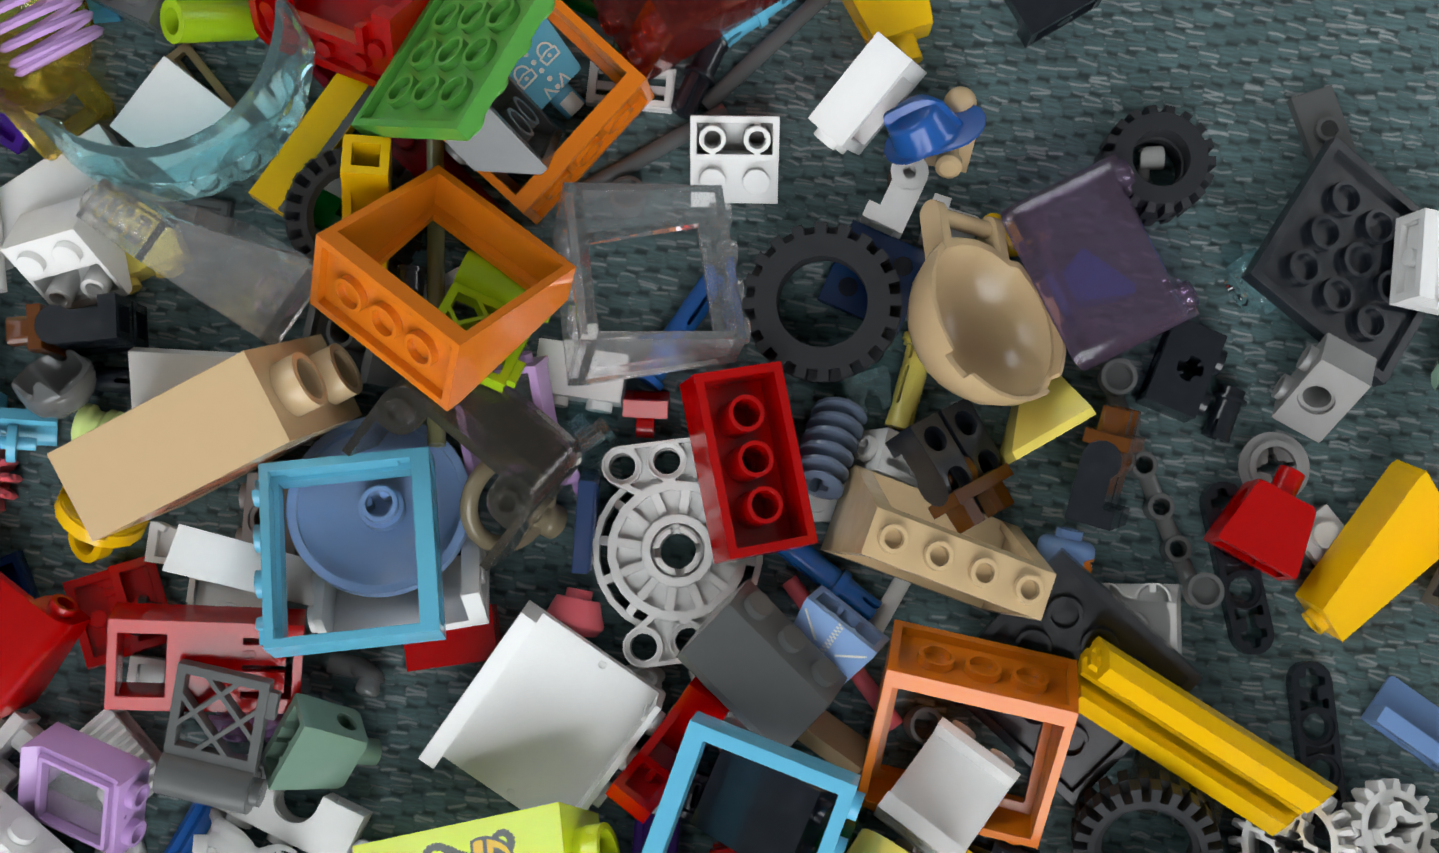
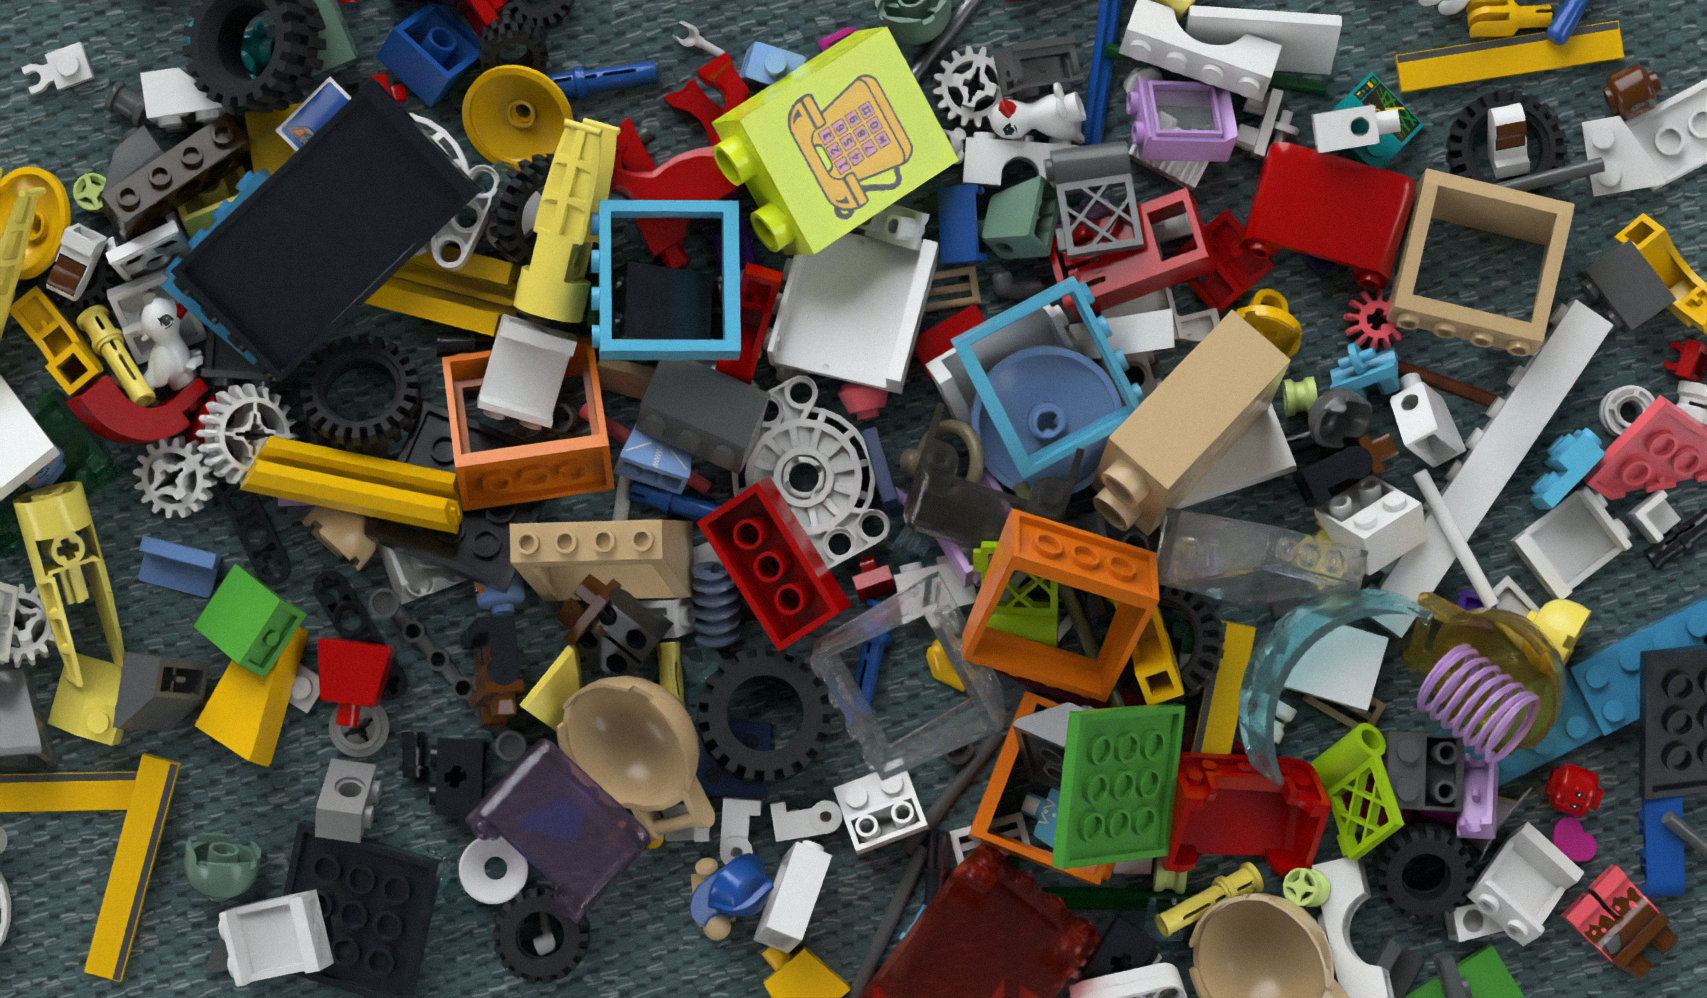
camera: 150 degrees right, 5 degrees up
(388, 768) = (959, 225): none -> blue hinge
(405, 694) = (972, 285): none -> tan tile
(459, 794) = (897, 226): none -> white hips
(609, 287) = (941, 666): none -> yellow arm
(821, 178) = (818, 819): none -> white leg
(1199, 243) = (476, 881): none -> white piece
(1224, 685) = (342, 534): none -> tan cylinder
(1367, 628) = (249, 621): none -> bright green panel

